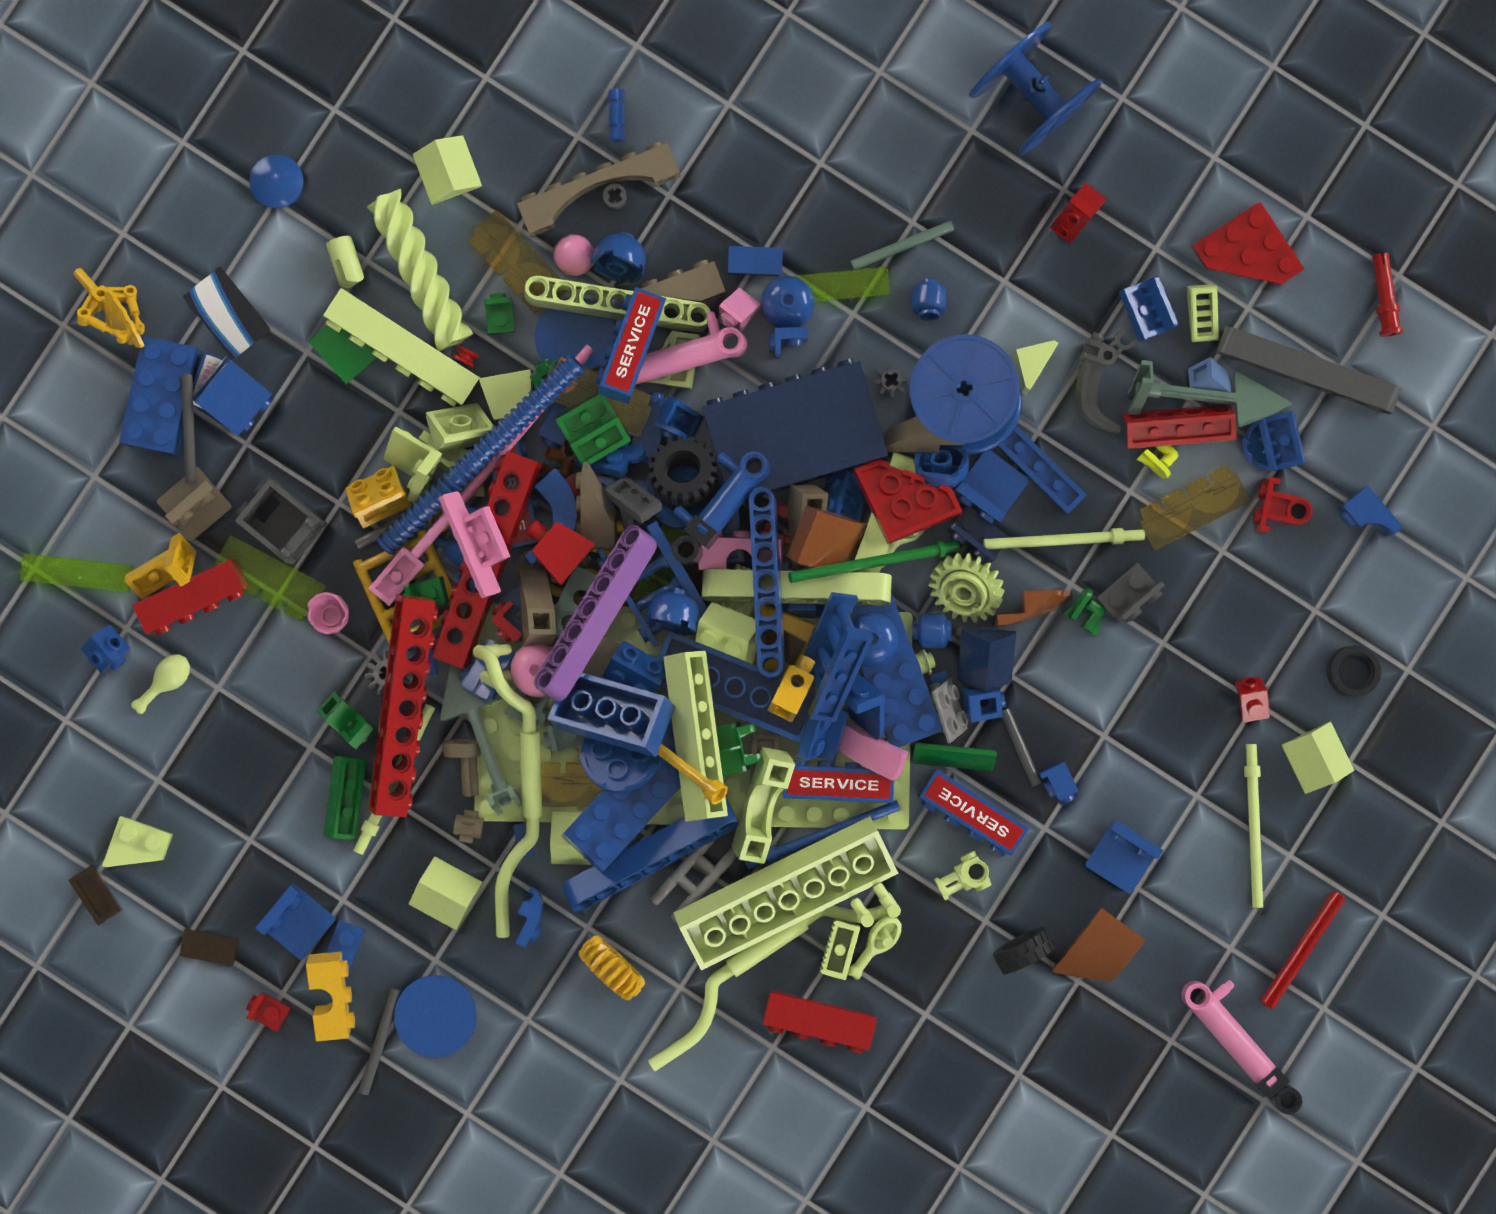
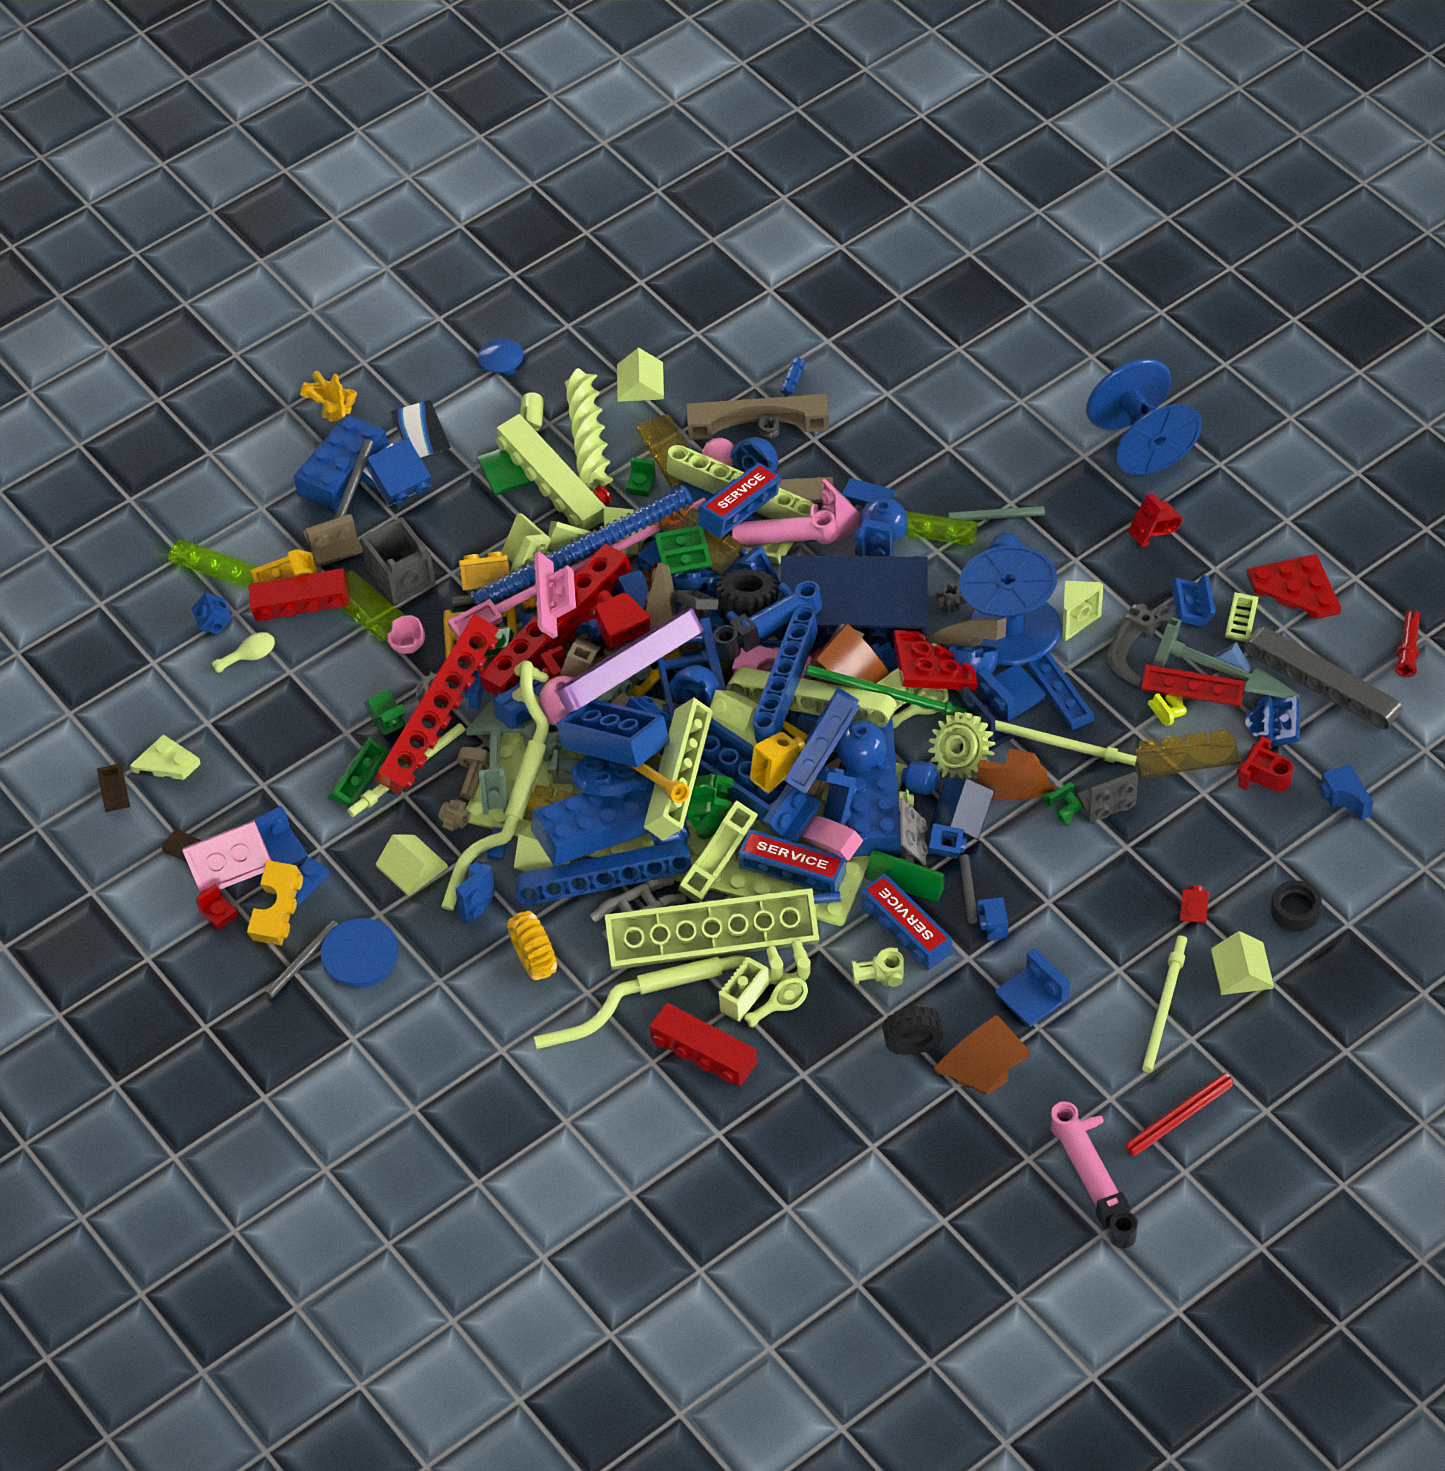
camera: 25 degrees right, 35 degrees down
(260, 961) = (227, 857): none -> bright pink plate

